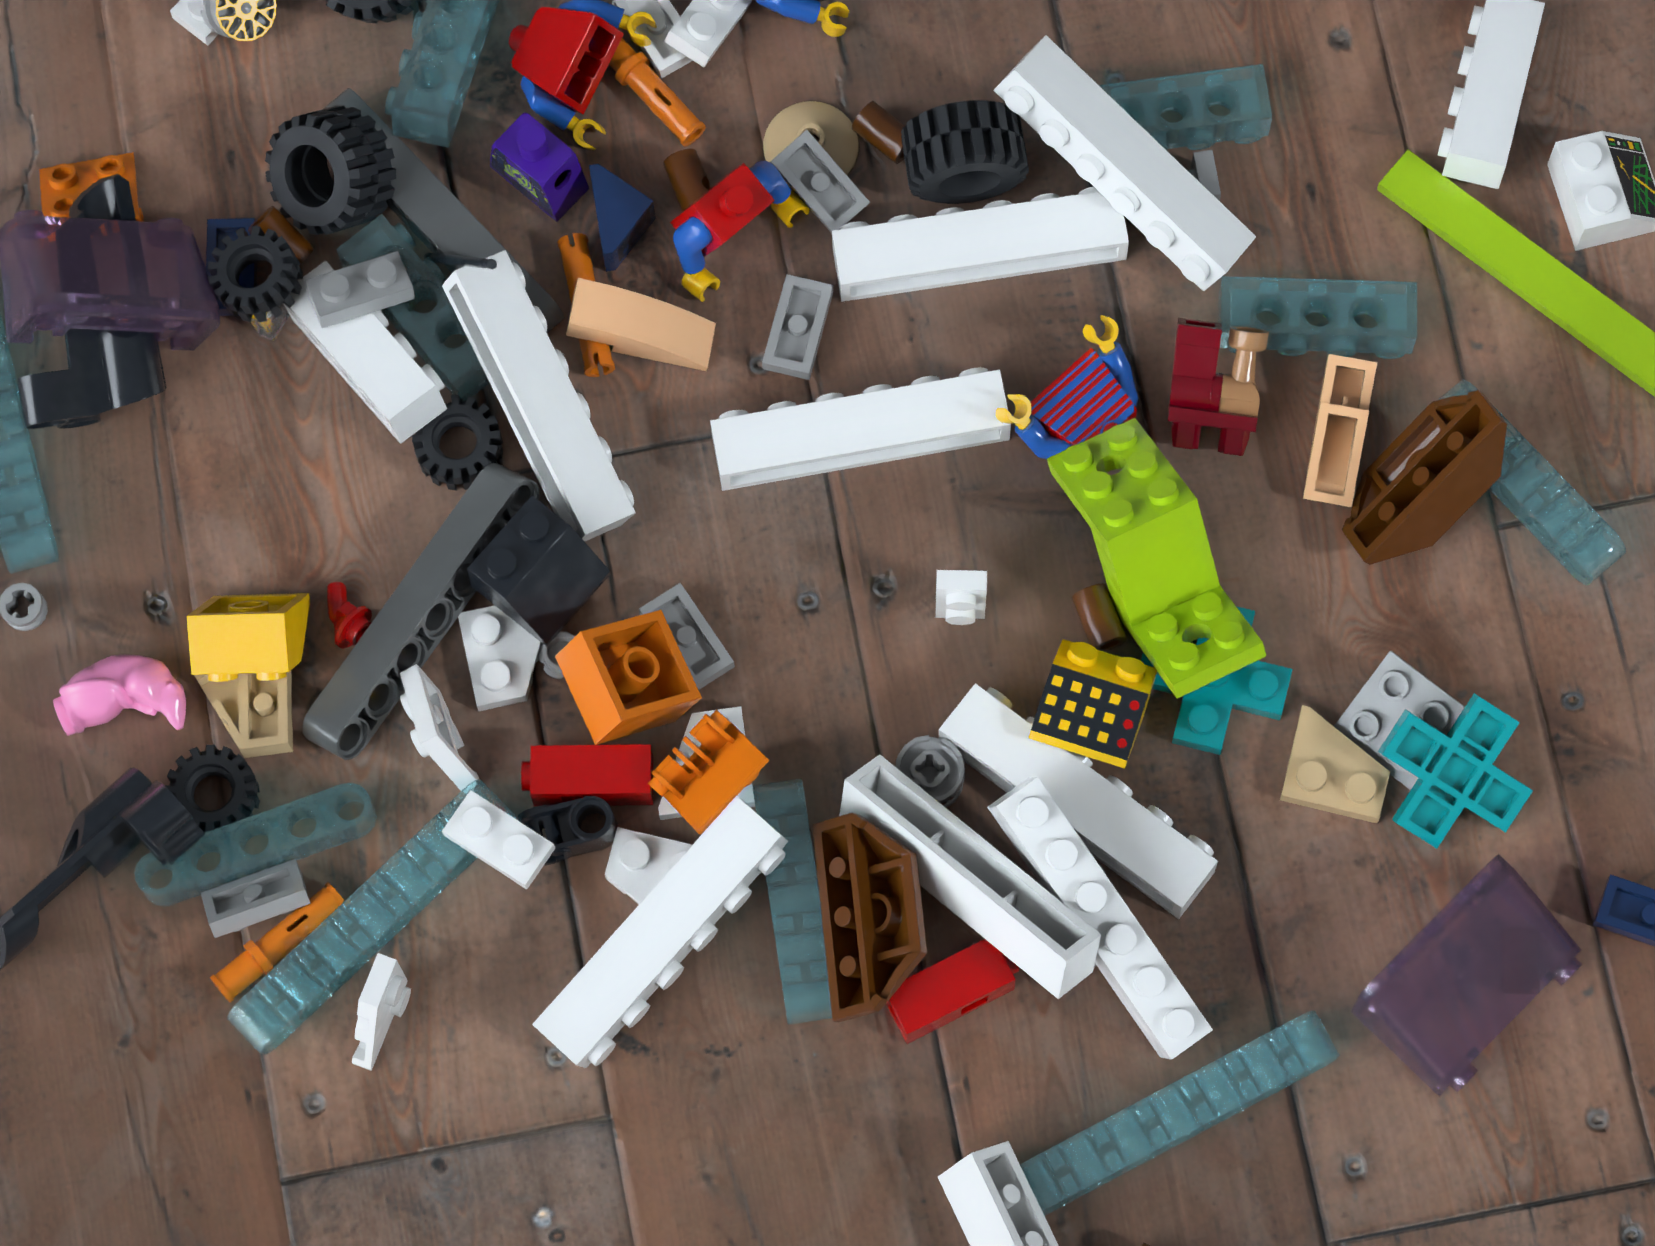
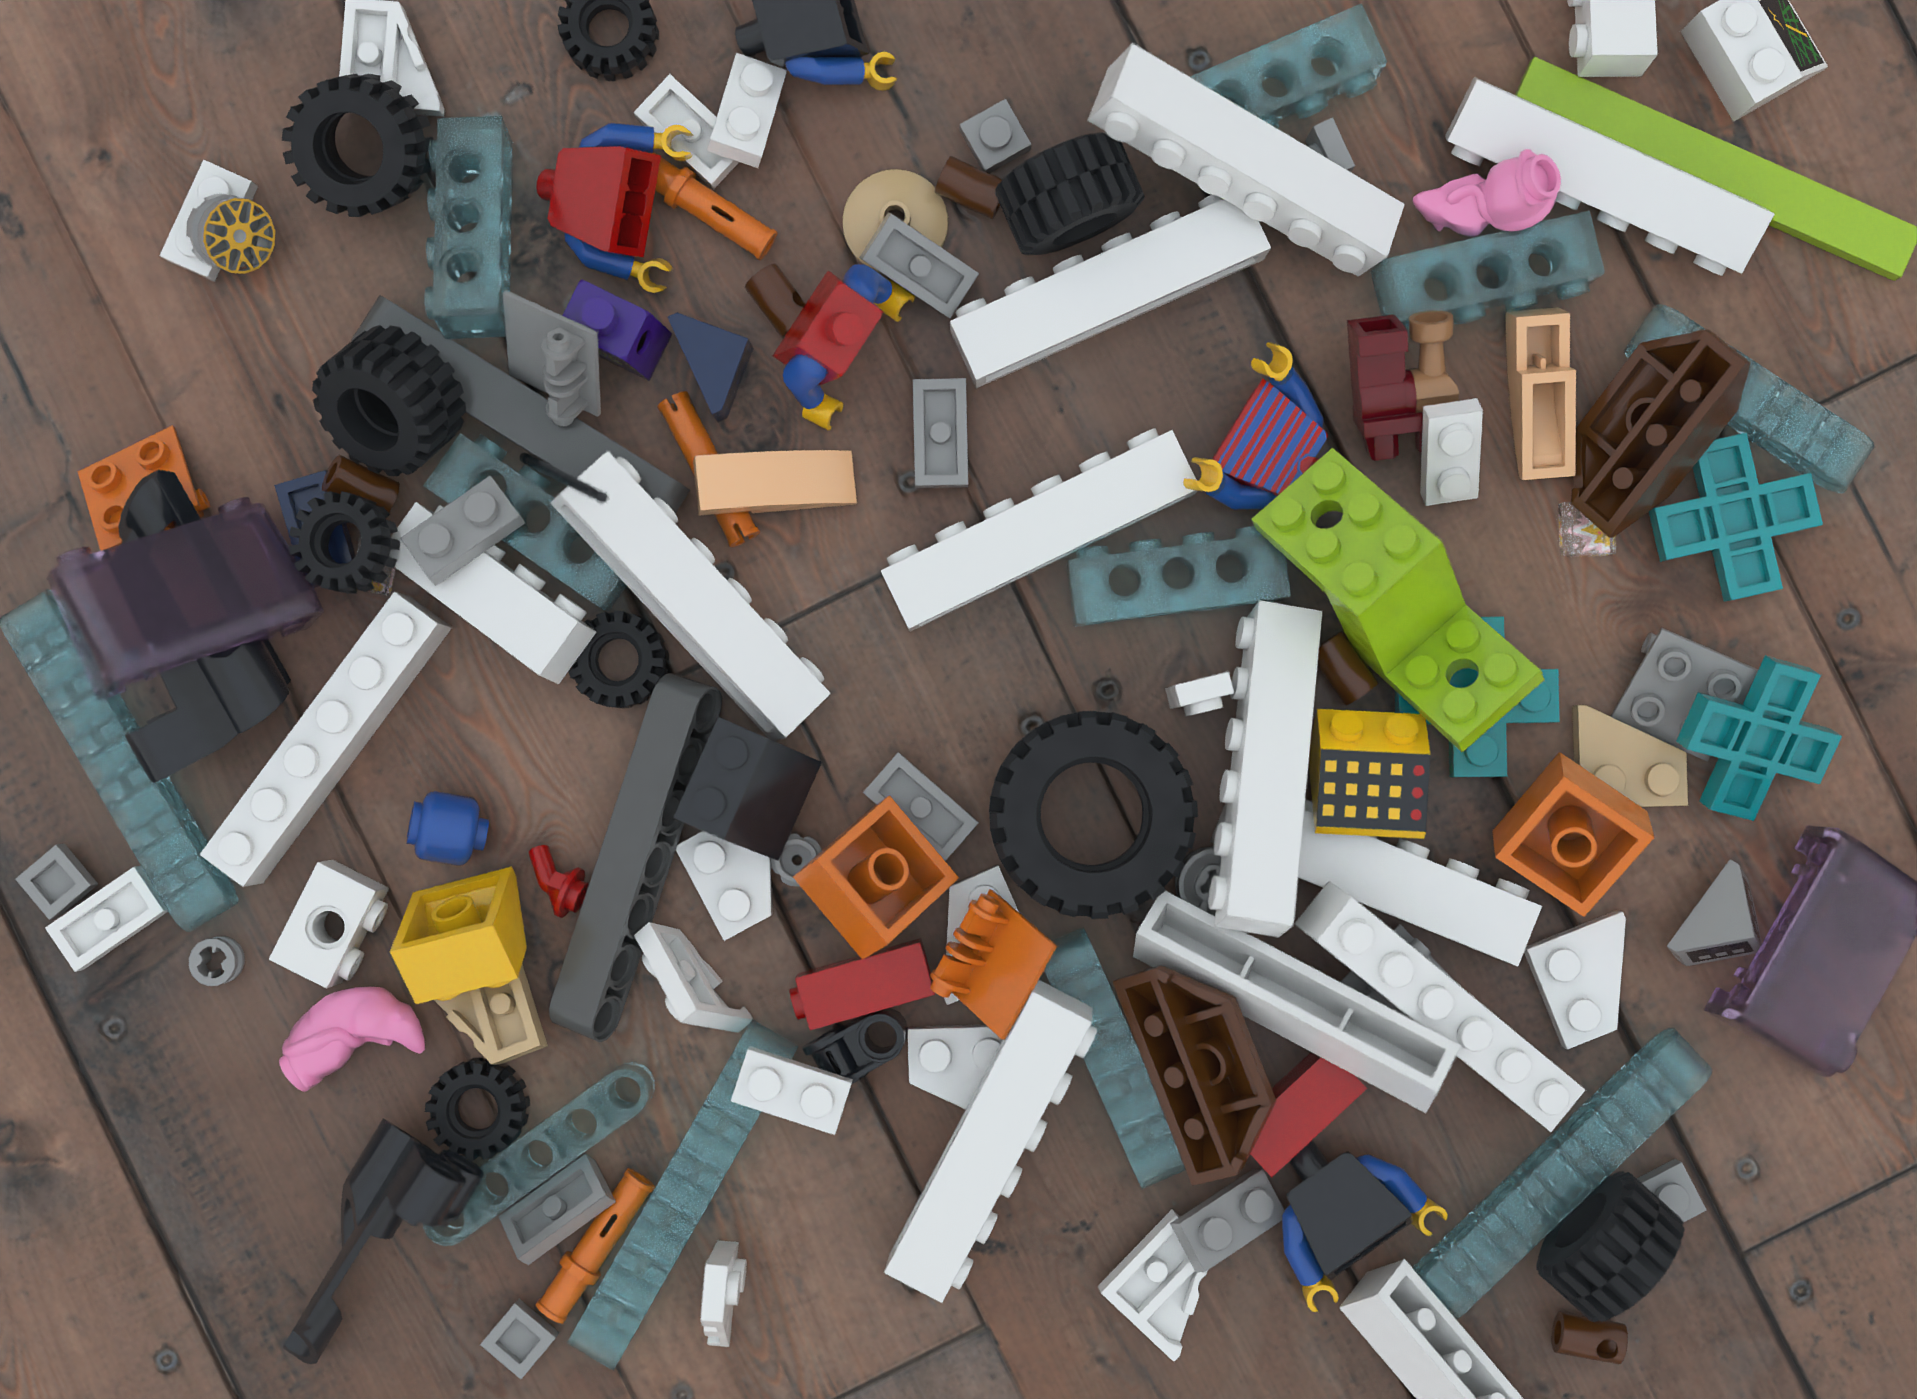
camera: 15 degrees left, 15 degrees up
(140, 570) = (304, 941): none -> white brick
(183, 440) = (326, 740): none -> white brick
(185, 1005) = (519, 1338): none -> light grey plate
(263, 543) = (446, 828): none -> blue head
(481, 169) = (553, 357): none -> light grey hinge
(782, 1114) = (1156, 1287): none -> white wing
(830, 614) = (1164, 830): none -> black tyre
(859, 1070) = (1228, 1220): none -> light grey plate
(916, 93) = (995, 136): none -> light grey plate
(946, 515) = (1095, 602): none -> clear light blue brick
(967, 1090) = (1345, 1214): none -> black torso
(1001, 671) = (1267, 770): none -> white brick
(1197, 1174) = (1611, 1248): none -> black tyre
(1242, 453) = (1451, 451): none -> white plate
(1242, 948) = (1581, 977): none -> white wing
(1261, 805) = (1572, 834): none -> orange brick
(1271, 1167) = (1675, 1189): none -> light grey plate
(1345, 252) = (1511, 199): none -> bright pink animal
(1345, 564) = (1579, 536): none -> clear tile
(1377, 924) = (1721, 922): none -> light grey slope
(1443, 260) = (1612, 178): none -> white brick
(1487, 580) = (1736, 518): none -> teal plate

